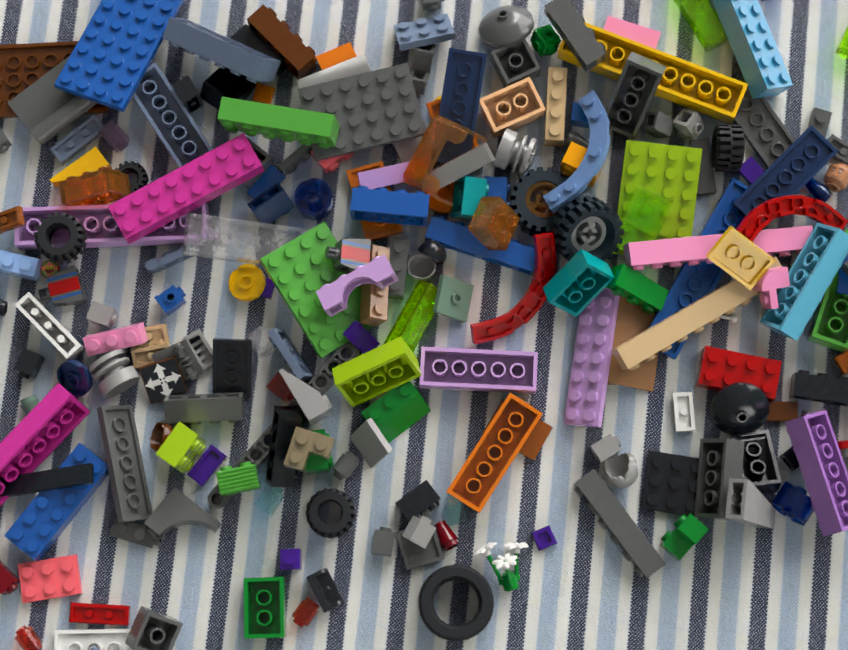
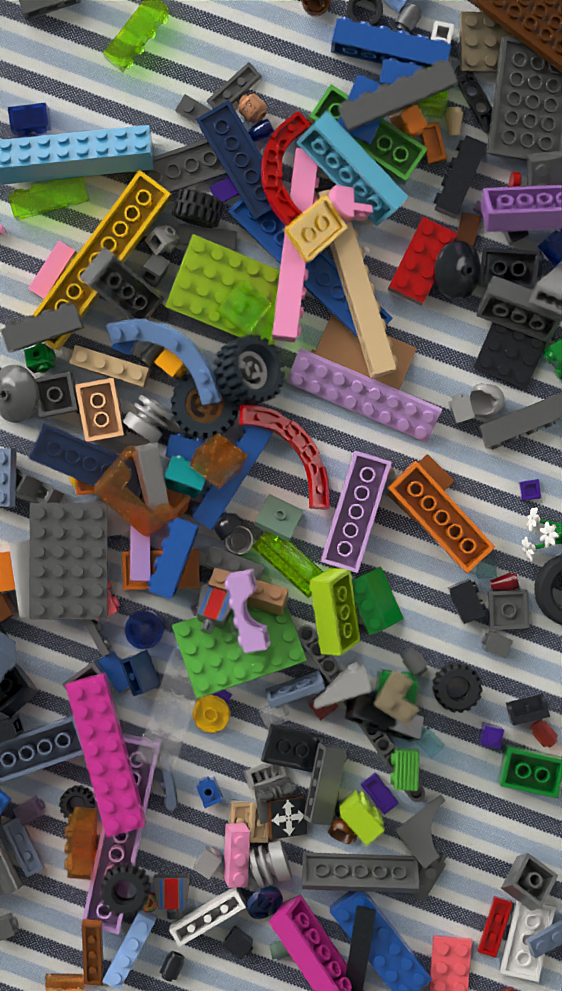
camera: 80 degrees left, 10 degrees up
(88, 162) = (53, 841): yellow slope -> none
(263, 94) = (24, 651): orange tile -> none
(278, 122) = (61, 649): bright green brick -> none
(360, 337) = (296, 617): dark purple tile -> none
(371, 443) = (400, 632): light grey tile -> none
(419, 531) = (498, 608): light grey brick -> none
(578, 283) = (297, 393): teal brick -> none
(637, 289) = (317, 337): green brick -> none
(683, 412) = (444, 324): white plate -> none

